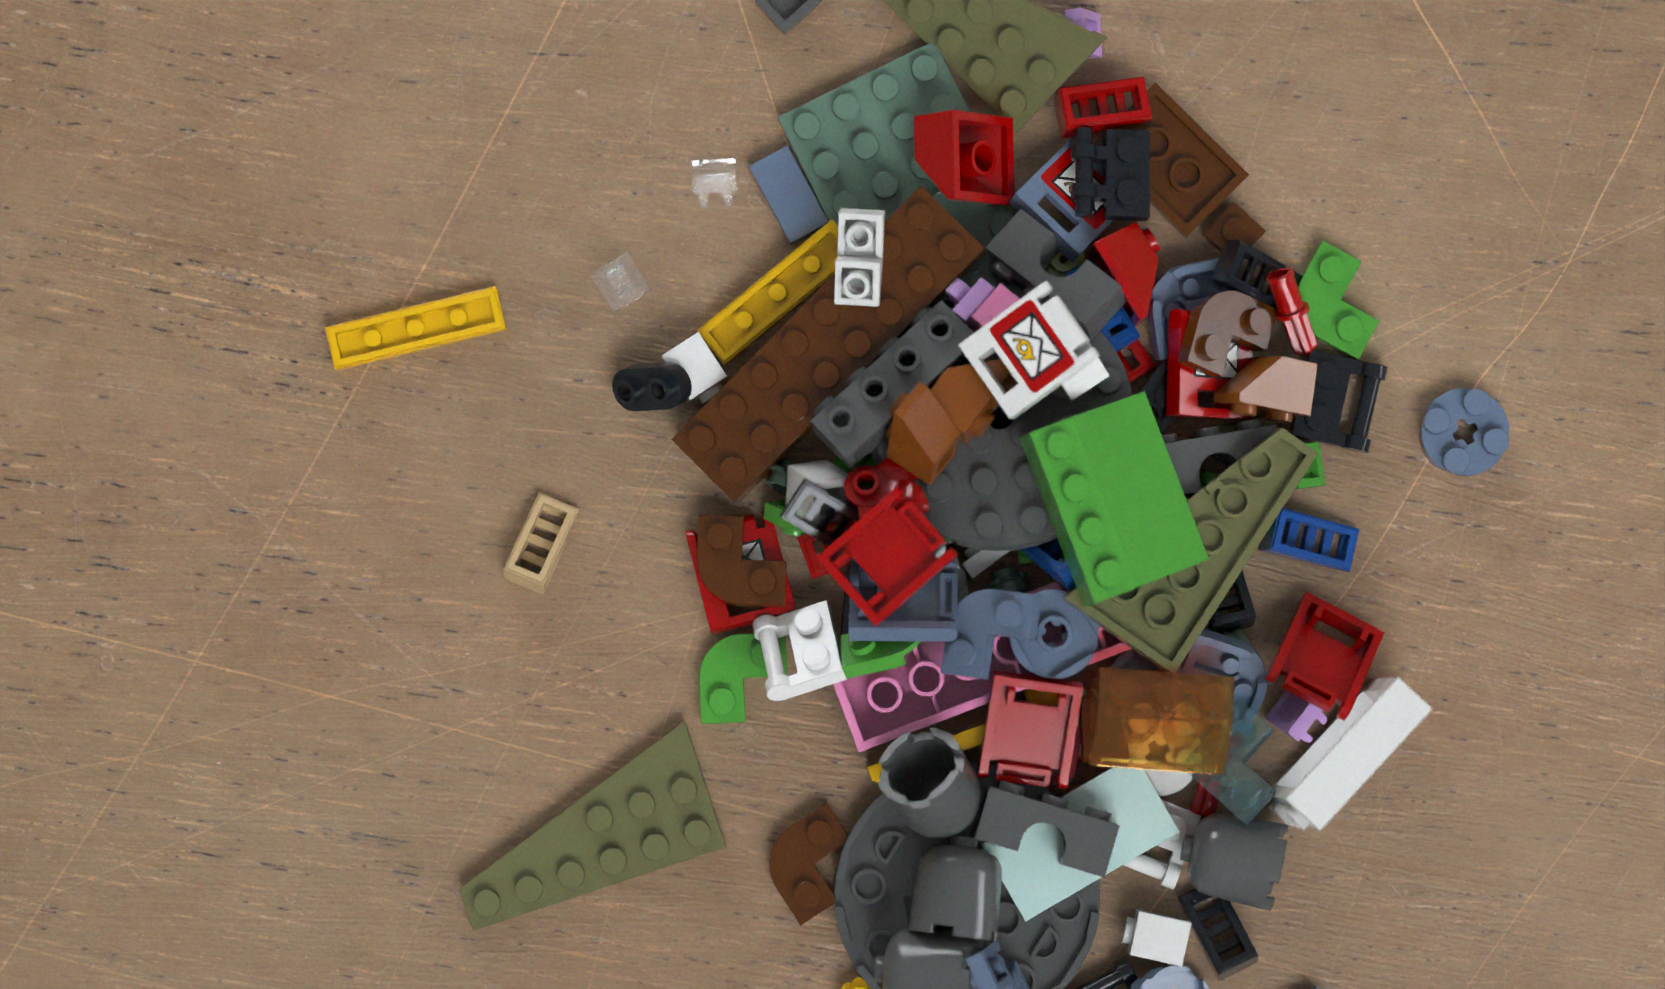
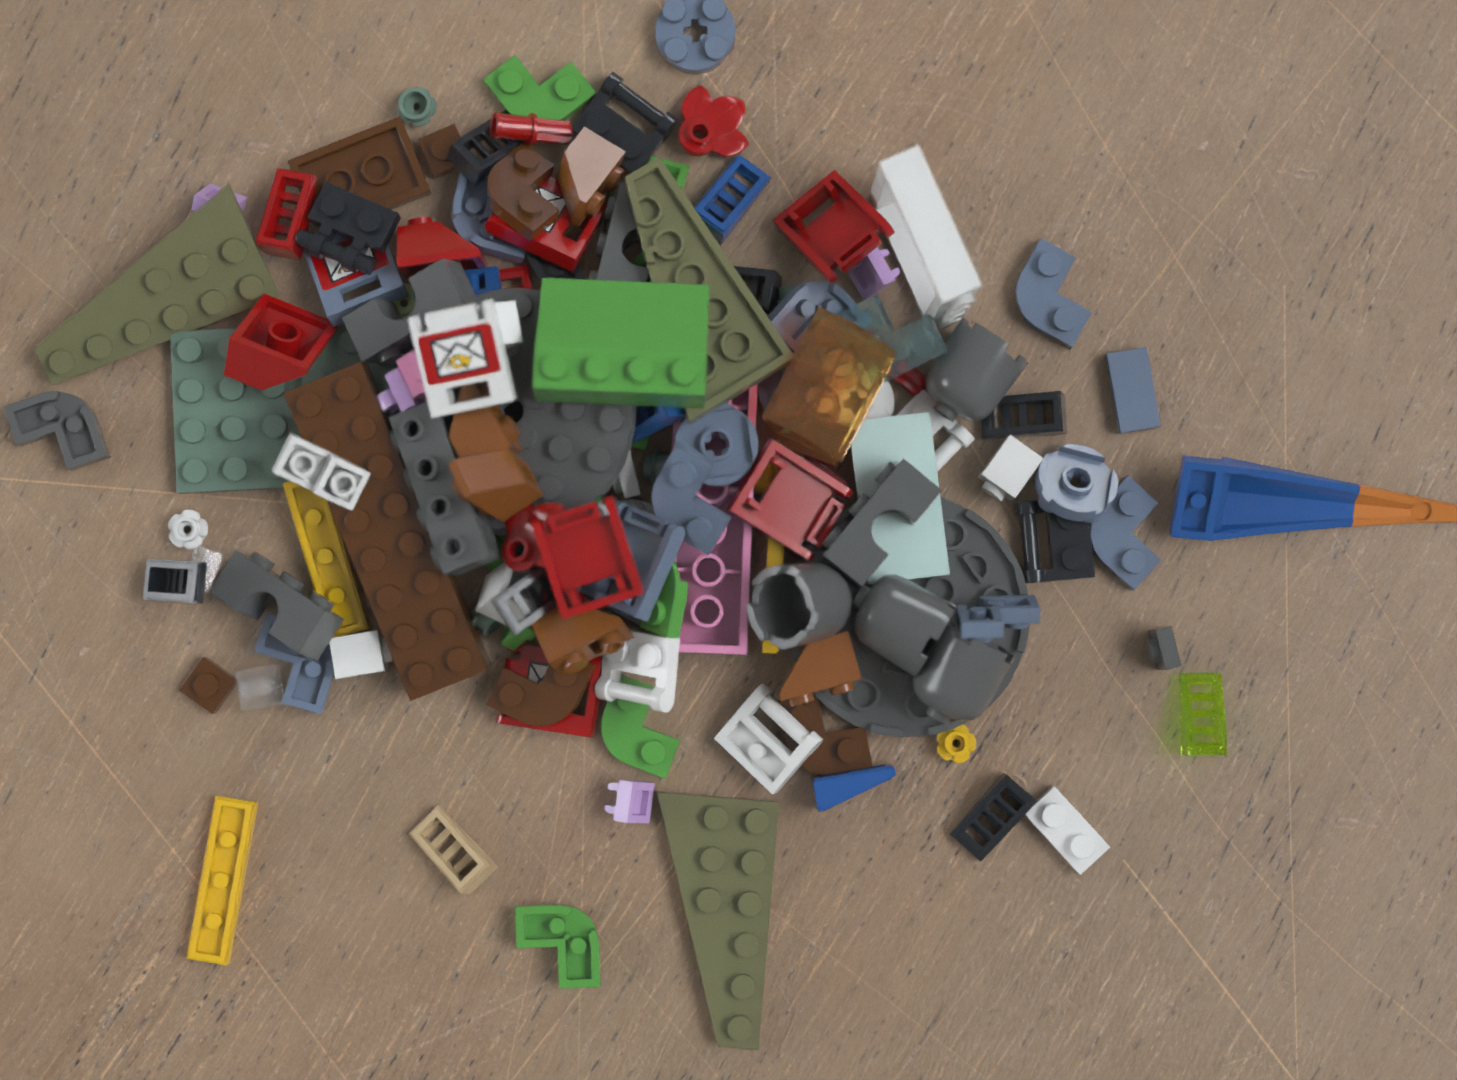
camera: 70 degrees left, 0 degrees up
(510, 691) = (569, 931): none -> bright green plate
(601, 232) = (209, 685): none -> reddish brown plate
(642, 386) = (358, 698): black plate -> none
(665, 701) = (632, 801): none -> lavender tile
(674, 318) = (308, 680): none -> sand blue plate
(690, 157) = (175, 581): none -> black slope
(705, 300) = (302, 620): none -> dark grey arch
(748, 155) = (198, 531): none -> white plate
(766, 901) = (842, 786): none -> blue slope
(770, 806) = (761, 750): none -> white plate
(788, 195) = (247, 512): sand blue tile -> none
(802, 580) = (580, 638): none -> dark orange slope
(878, 831) = (822, 666): none -> dark orange slope
(1277, 180) = (413, 96): none -> sand green plate
(1342, 894) = (1038, 296): none -> sand blue plate
(1383, 492) = (716, 120): none -> red plate

